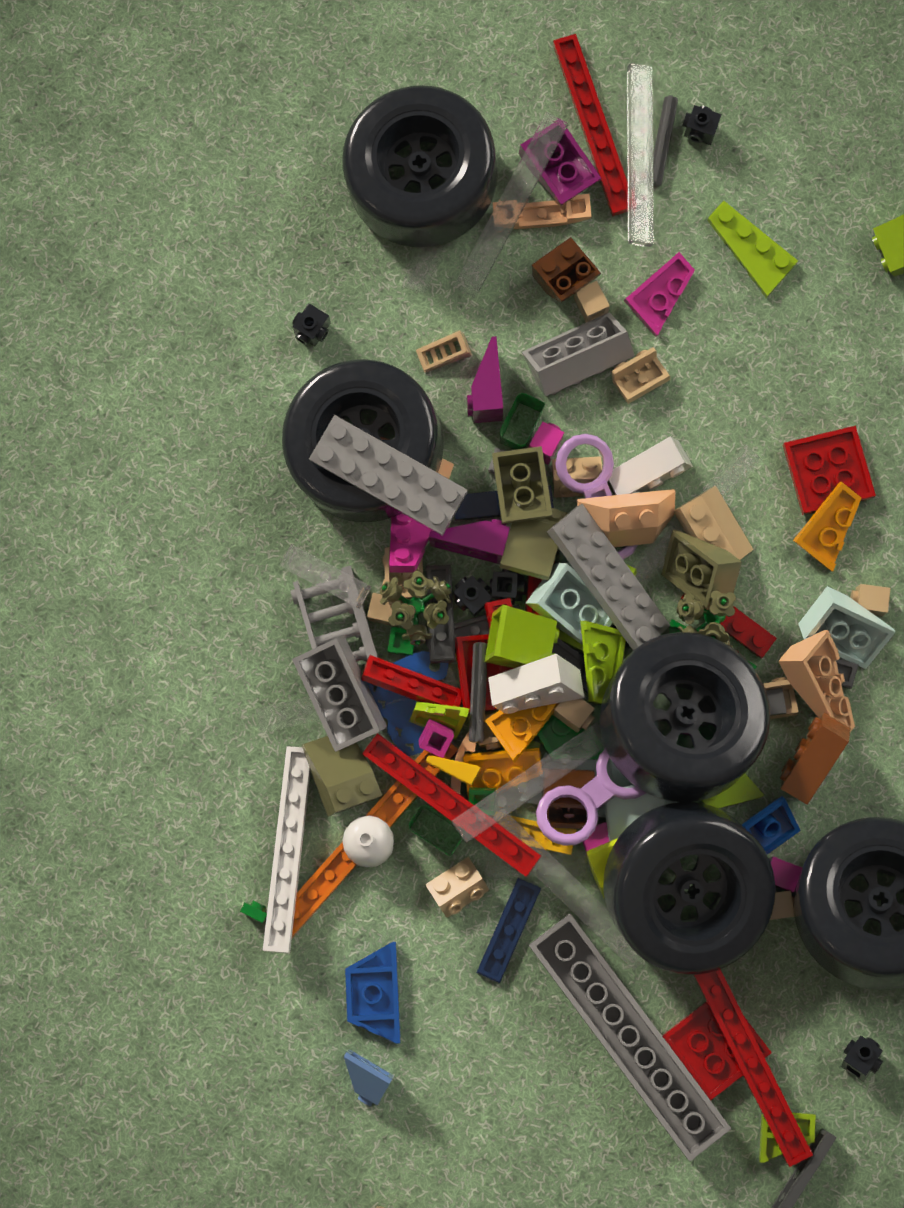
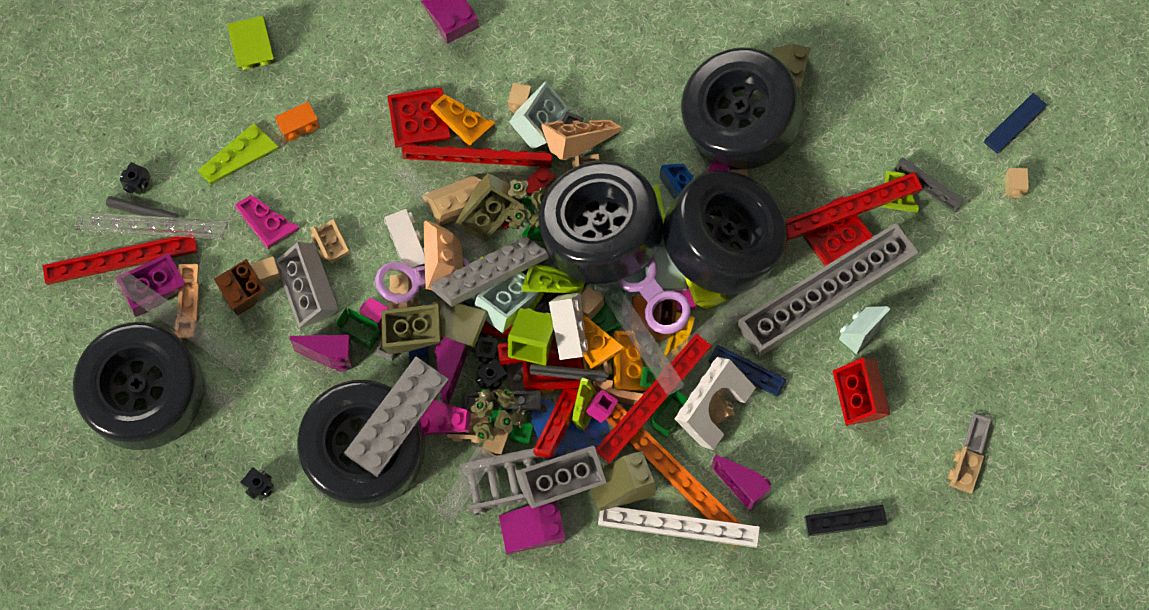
camera: 90 degrees left, 10 degrees down
(255, 911) = (724, 555): green plate -> none
(273, 665) = (532, 527): none -> magenta slope
(311, 1068) = (845, 520): none -> black plate
(347, 931) = (743, 482): none -> magenta slope
(367, 1078) = (855, 476): medium blue slope -> none
(368, 841) = (676, 464): white cylinder -> none
(373, 993) = (790, 469): blue wing -> none
(435, 860) = (695, 413): none -> white arch
(456, 356) = (287, 370): tan slope -> none
(463, 771) = (628, 389): yellow slope -> none
(488, 1086) = (861, 391): none -> red slope
(576, 1085) = (863, 327): none -> light aqua slope
(781, 562) = (471, 155): none -> red plate
(802, 314) = (297, 122): none -> orange brick
(814, 757) = (634, 142): dark orange brick -> none
(859, 1065) = (847, 135): black brick -> none

